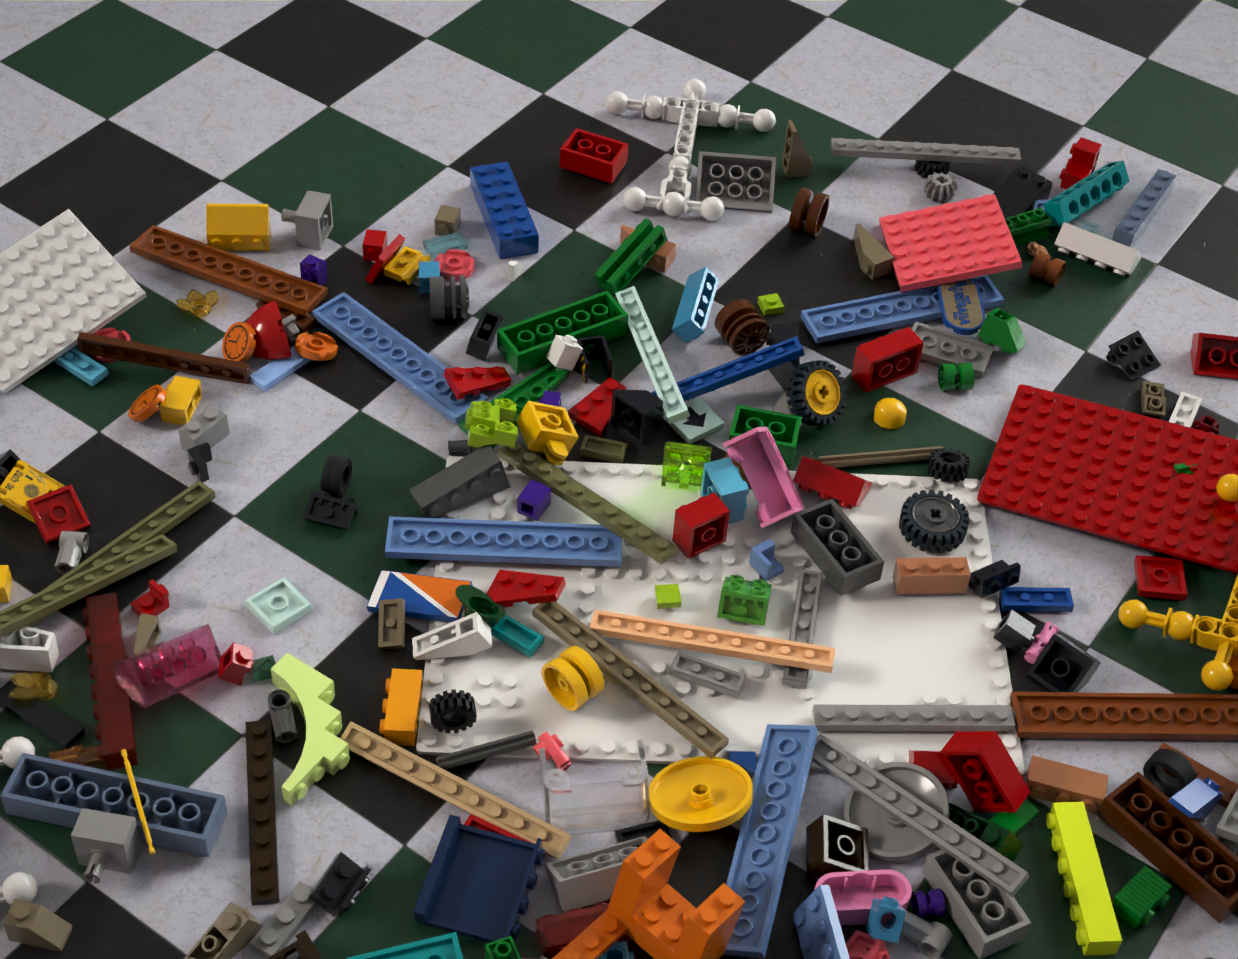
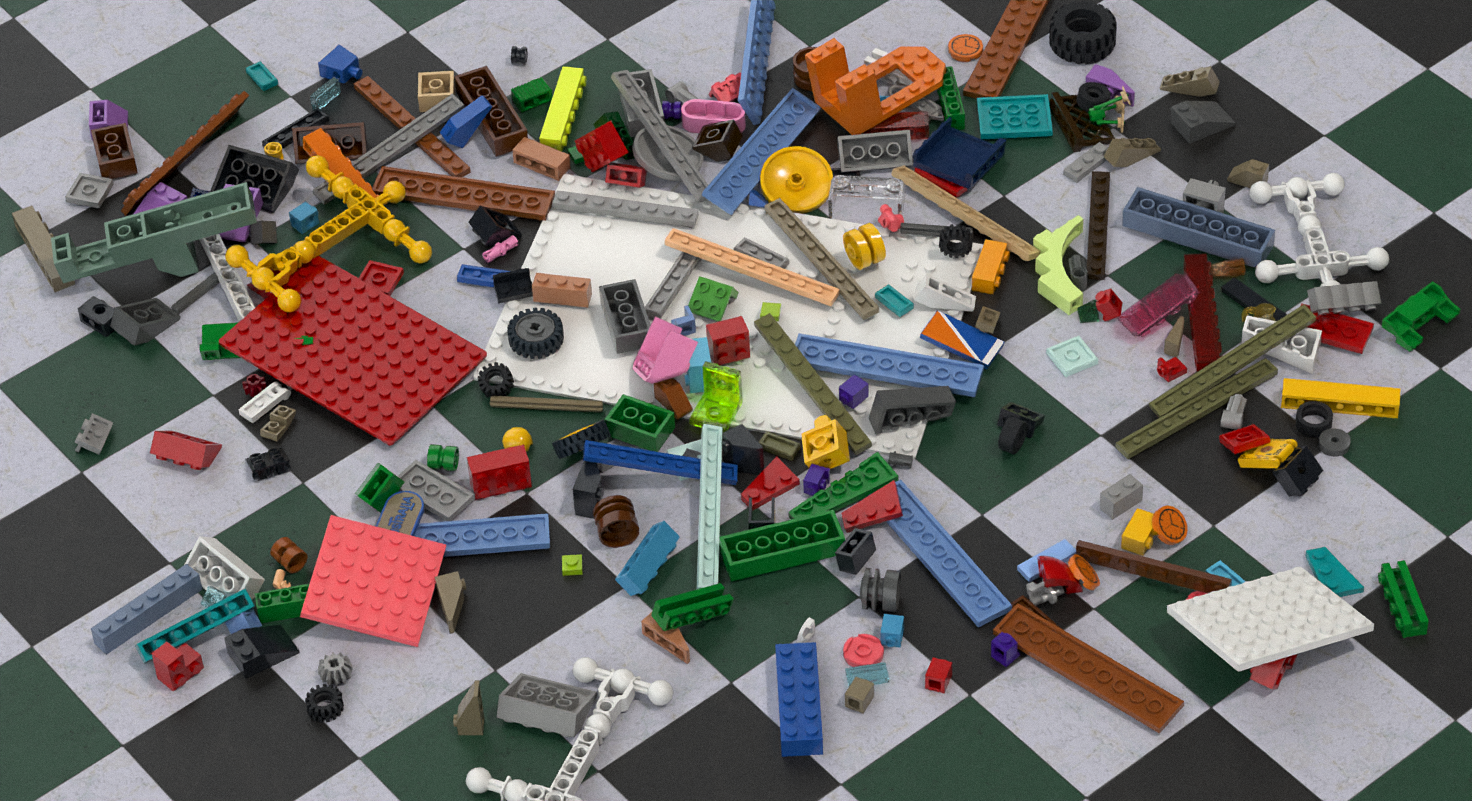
camera: 160 degrees left, 0 degrees up
(138, 802) = (1181, 212): yellow piece -> none
(197, 461) = (1126, 468): black bracket -> none
(198, 304) = (1120, 641): clear yellow plate -> none
(238, 227) = (1073, 706): yellow slope -> none
(311, 219) = (997, 699): light grey brick -> none
(316, 346) = (1012, 571): orange tile -> none
(339, 884) = (1049, 168): black bracket -> none
(385, 258) = (932, 641): red tile -> none
(405, 265) = (911, 650): yellow plate -> none
(477, 601) = (918, 308): dark green piece -> none
(485, 425) = (880, 440): lime bracket -> none
(516, 587) = (882, 324): red wing -> none
(564, 352) = (787, 511): white brick -> none
(593, 155) = (684, 750): red brick -> none
(809, 211) = (492, 638): reddish brown wheel -> none
(831, 482) = (600, 374): red slope -> none
(891, 929) = (707, 90): dark azure brick -> none
(925, 151) = (331, 700): light grey plate -> none
(1015, 632) = (519, 249): black brick -> none
(1176, 764) = (469, 146): black tyre -> none

